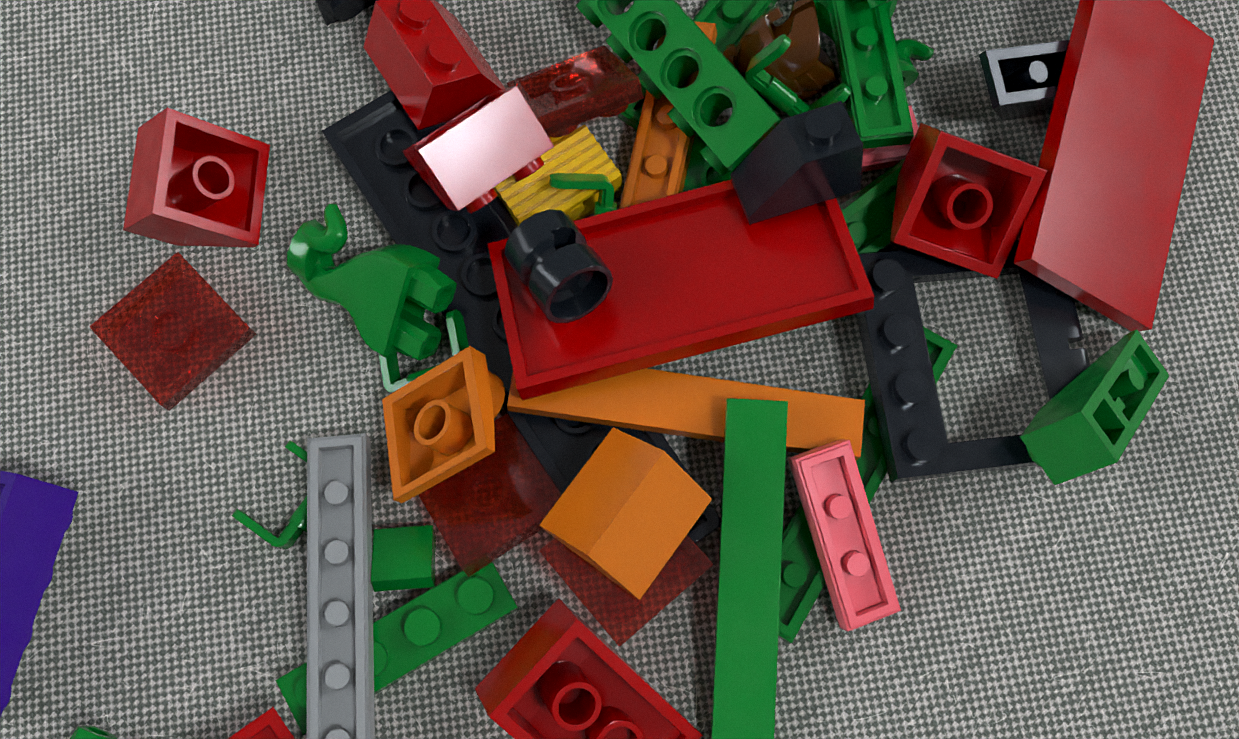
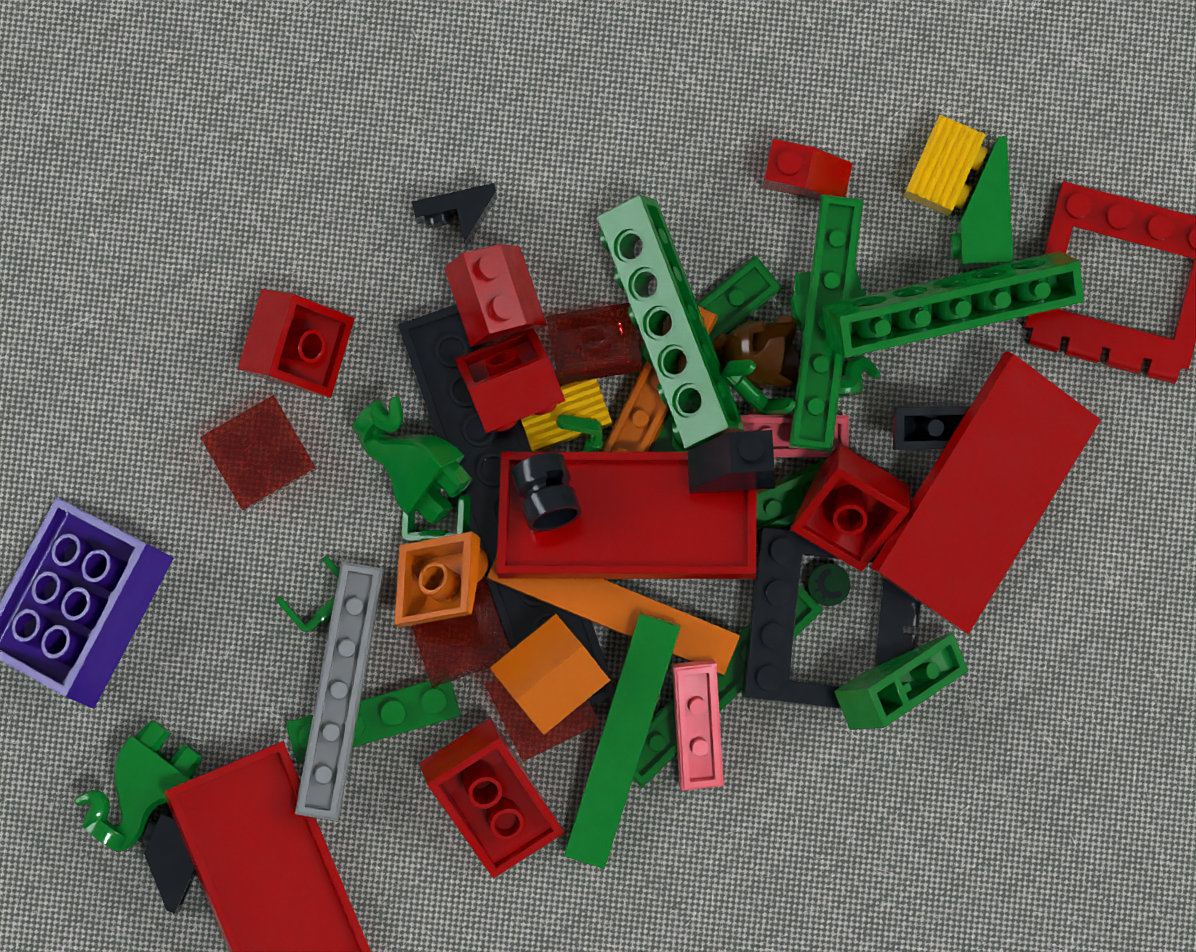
camera: 15 degrees right, 10 degrees up
(403, 558) = (390, 661): green tile -> none
(953, 313) = (829, 584): none -> dark green tile

